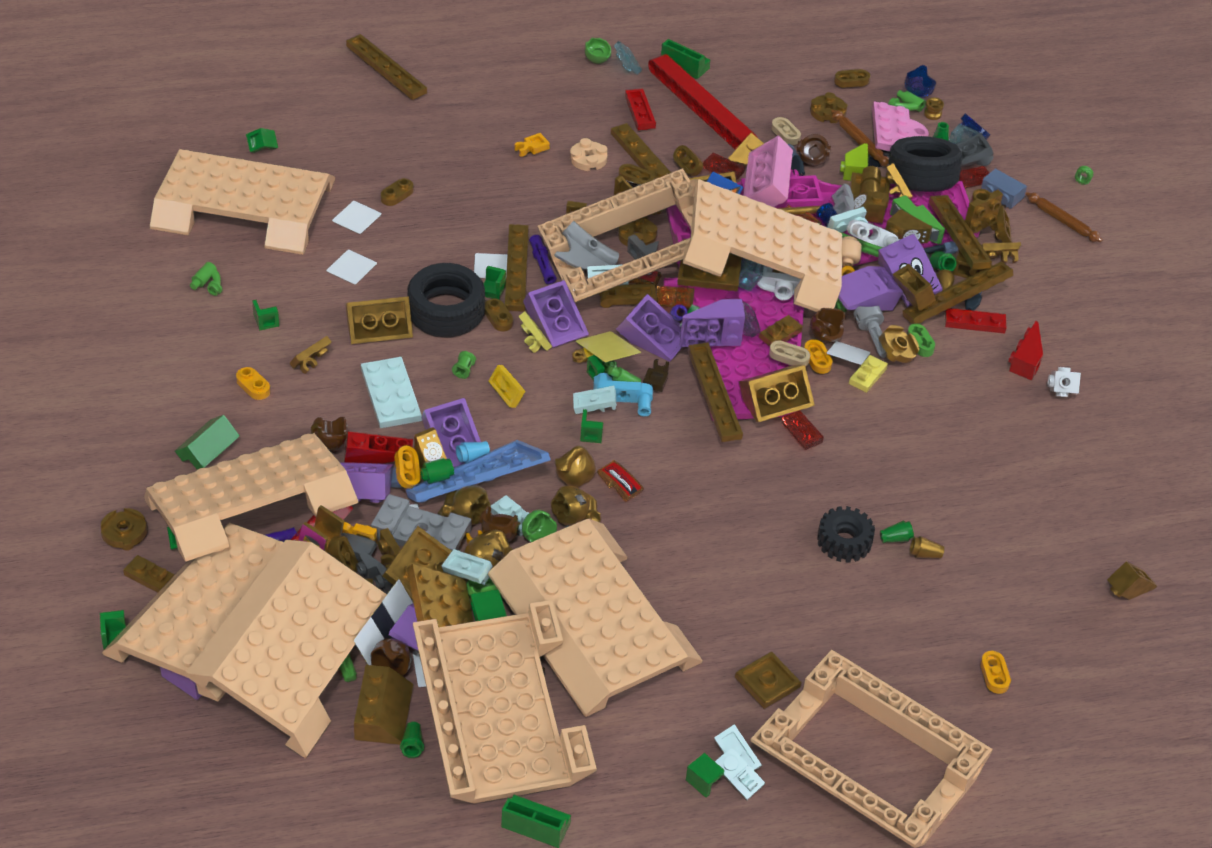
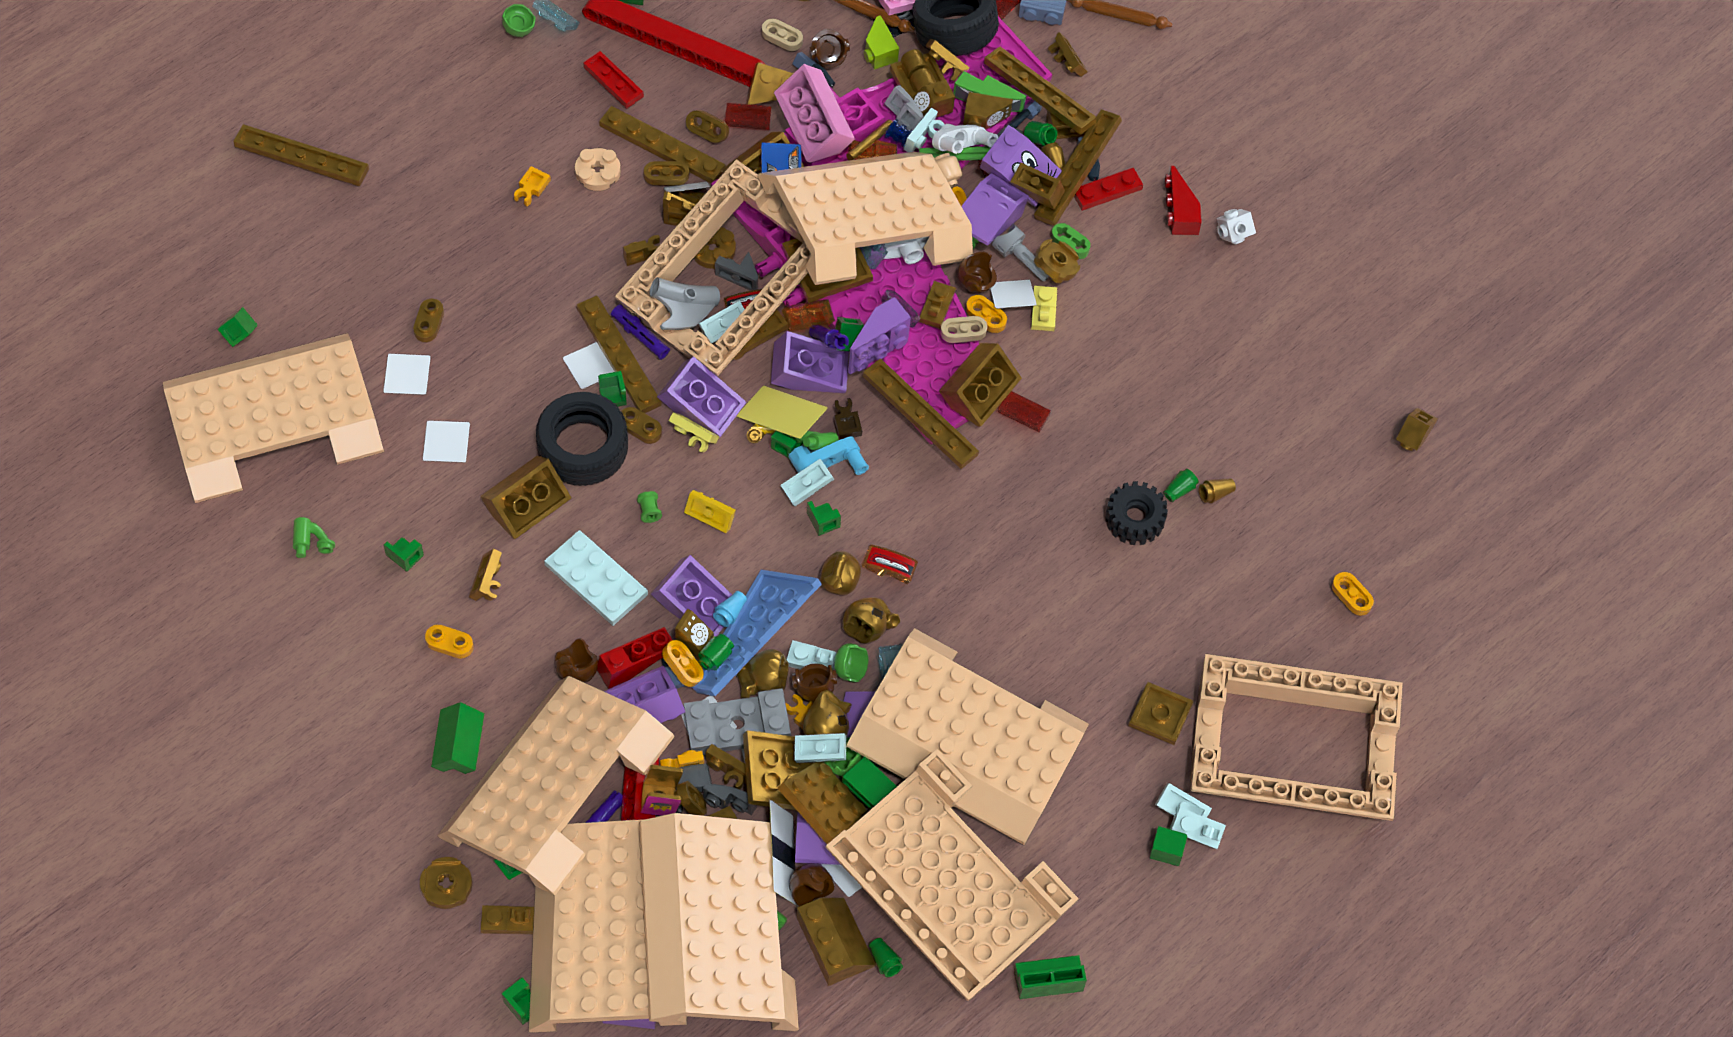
camera: 30 degrees left, 15 degrees up
(983, 209) = (1048, 52): pearl gold plate -> none
(1002, 249) = (1089, 87): pearl gold plate -> none

